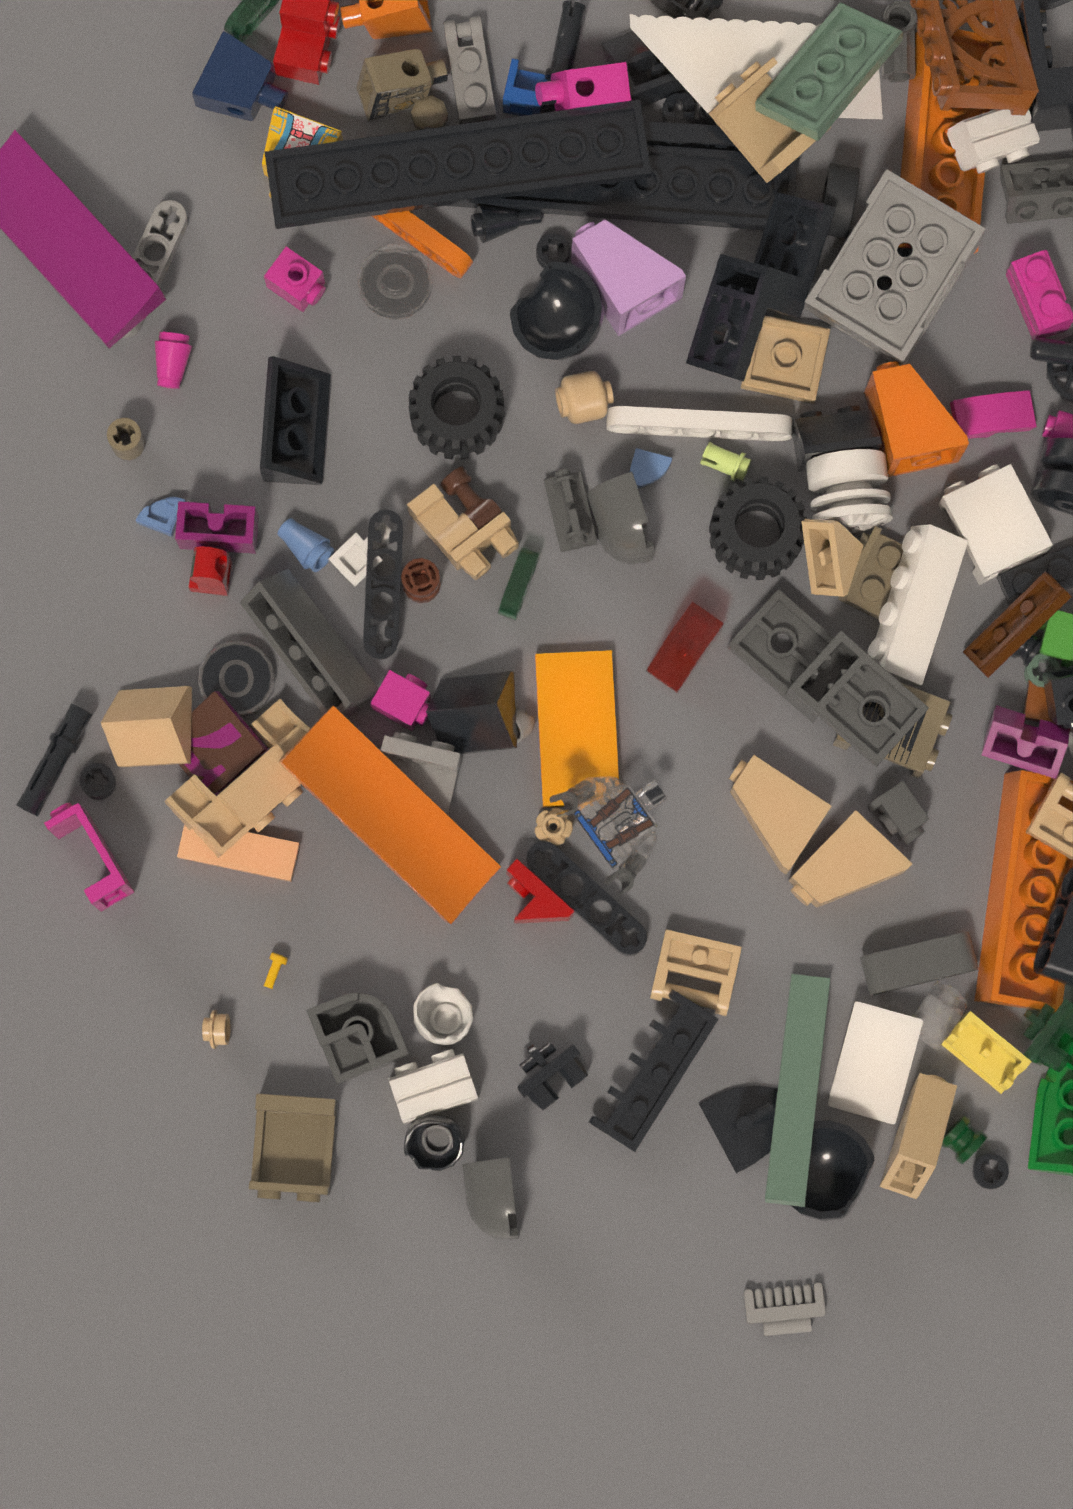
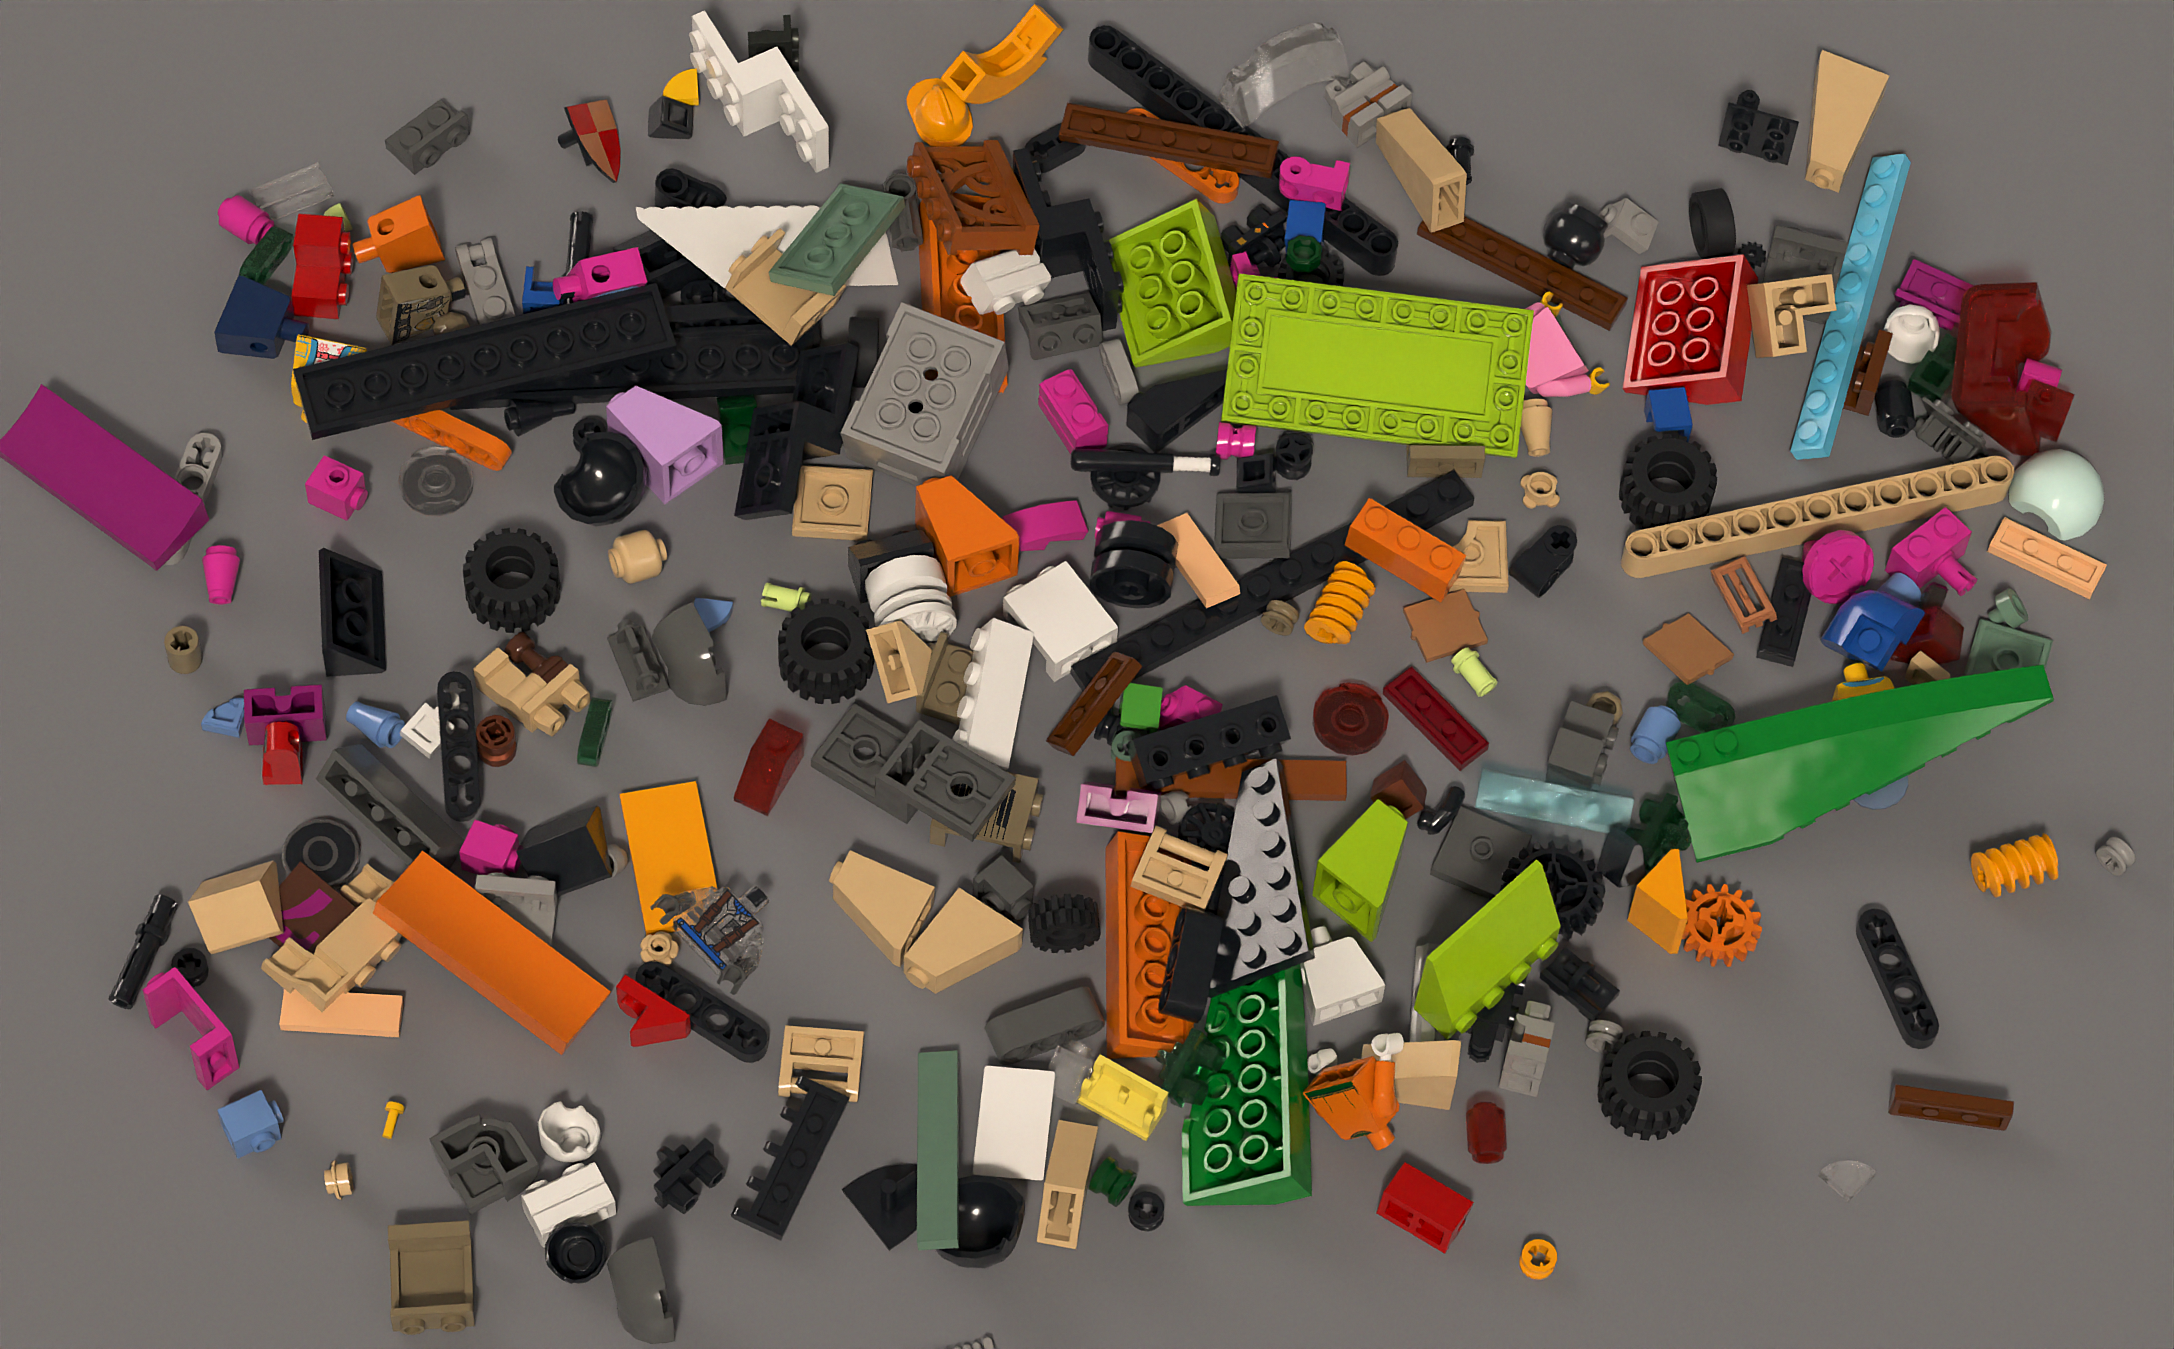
camera: 10 degrees left, 20 degrees down
(138, 961) = (251, 1124): none -> medium blue brick
(699, 423) = (755, 567): white beam -> none
(701, 256) = (735, 417): none -> dark green slope
(954, 862) = (1064, 923): none -> black tyre

